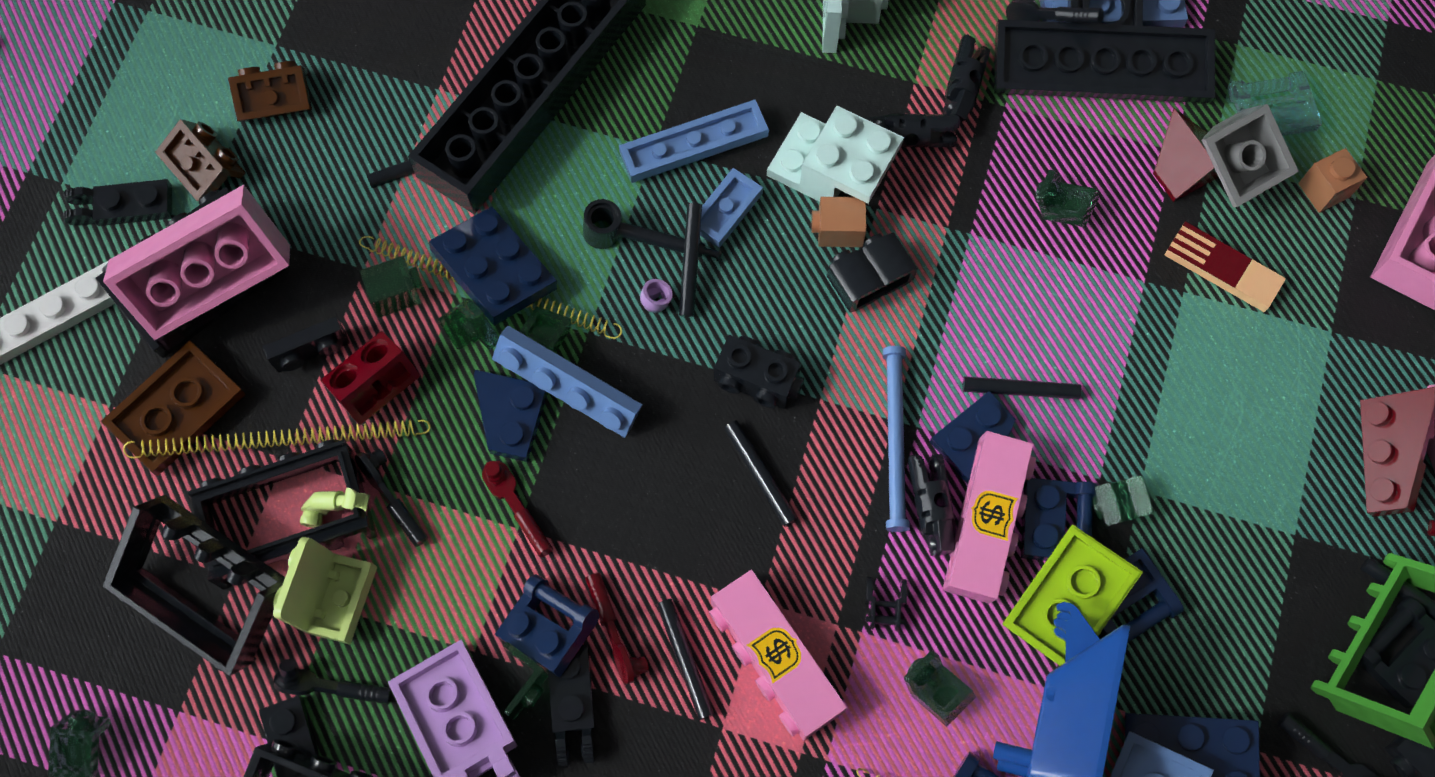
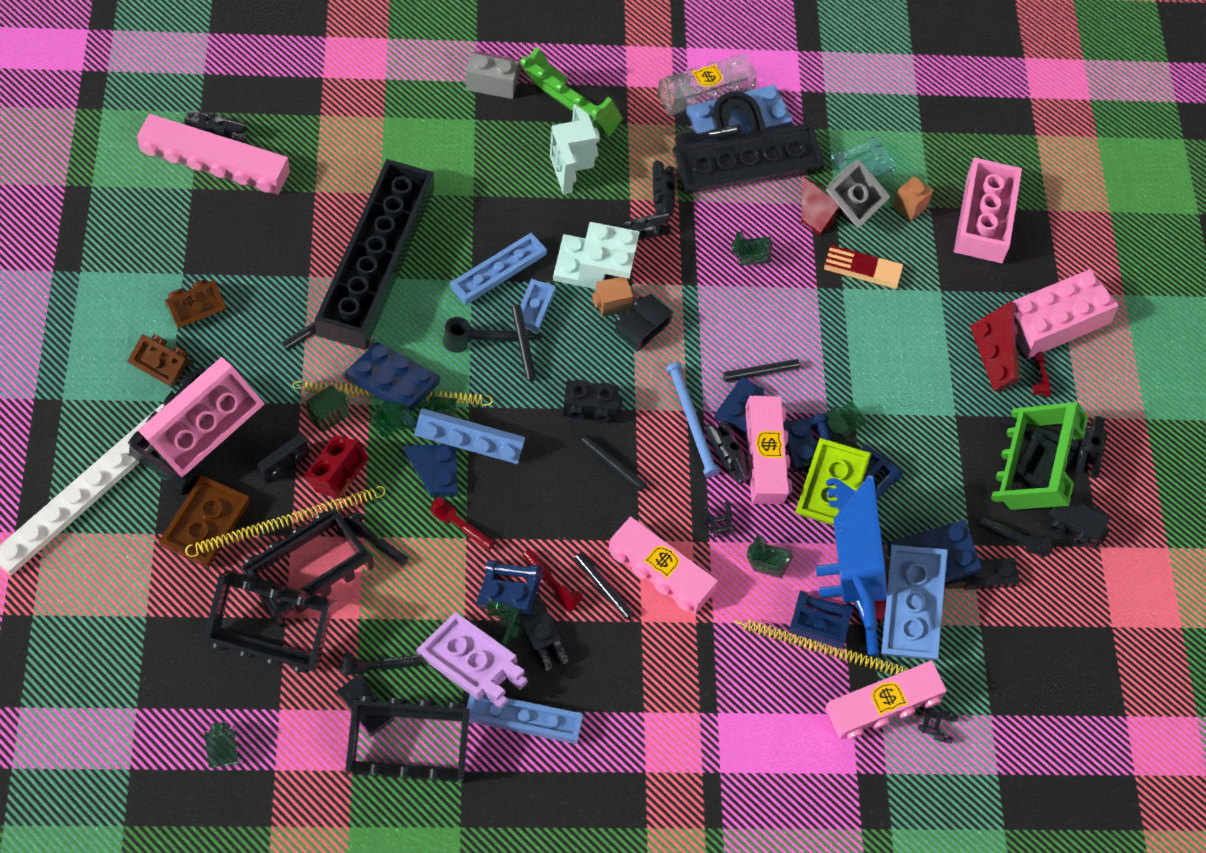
camera: 25 degrees left, 10 degrees down
(120, 203) = (112, 402): black hinge -> none
(323, 591) = (358, 604): yellowish green bracket -> none
(324, 501) = (338, 547): yellowish green arm -> none
(651, 291) = (503, 369): lavender hinge -> none

